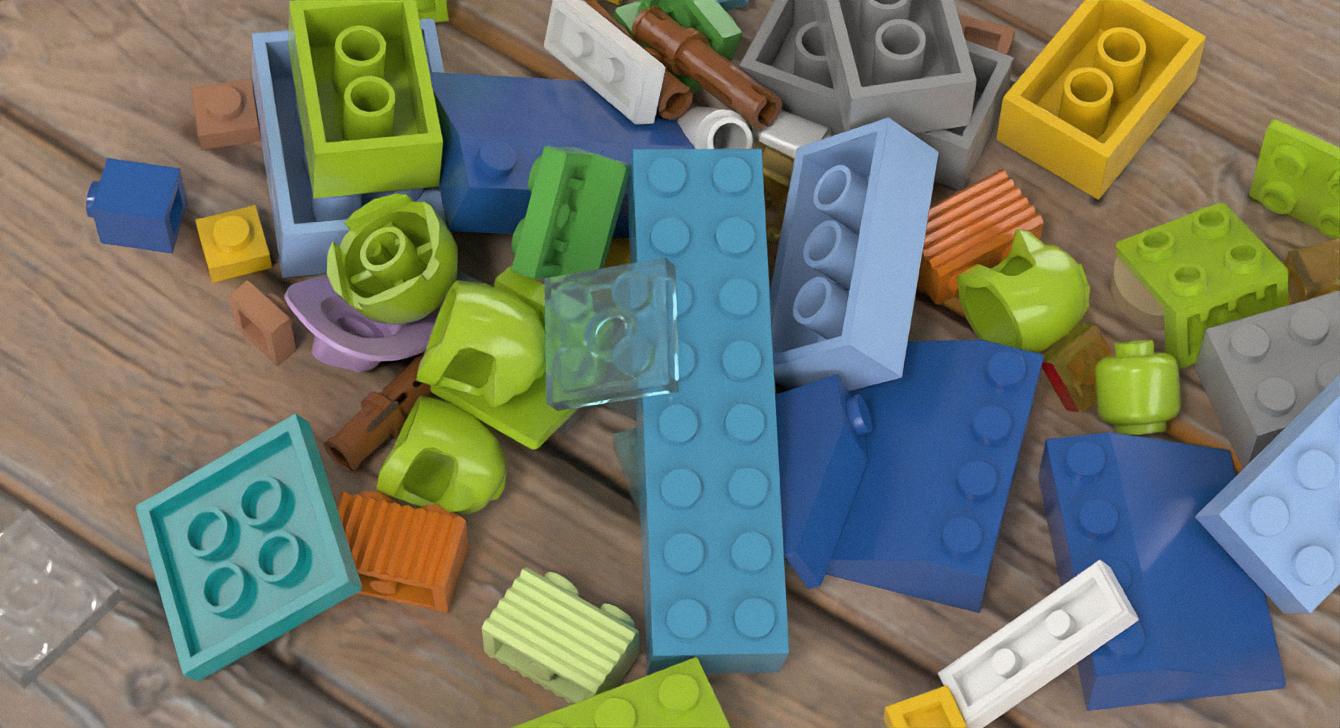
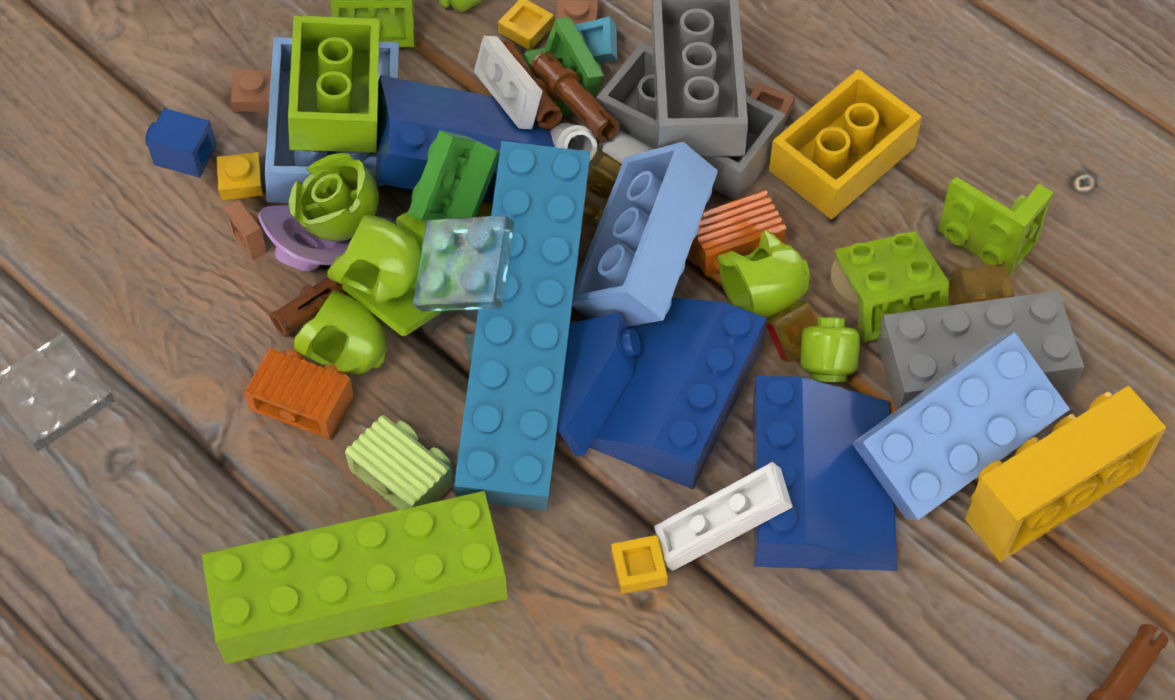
camera: 10 degrees right, 0 degrees up
(247, 548) = (200, 377): teal plate -> none

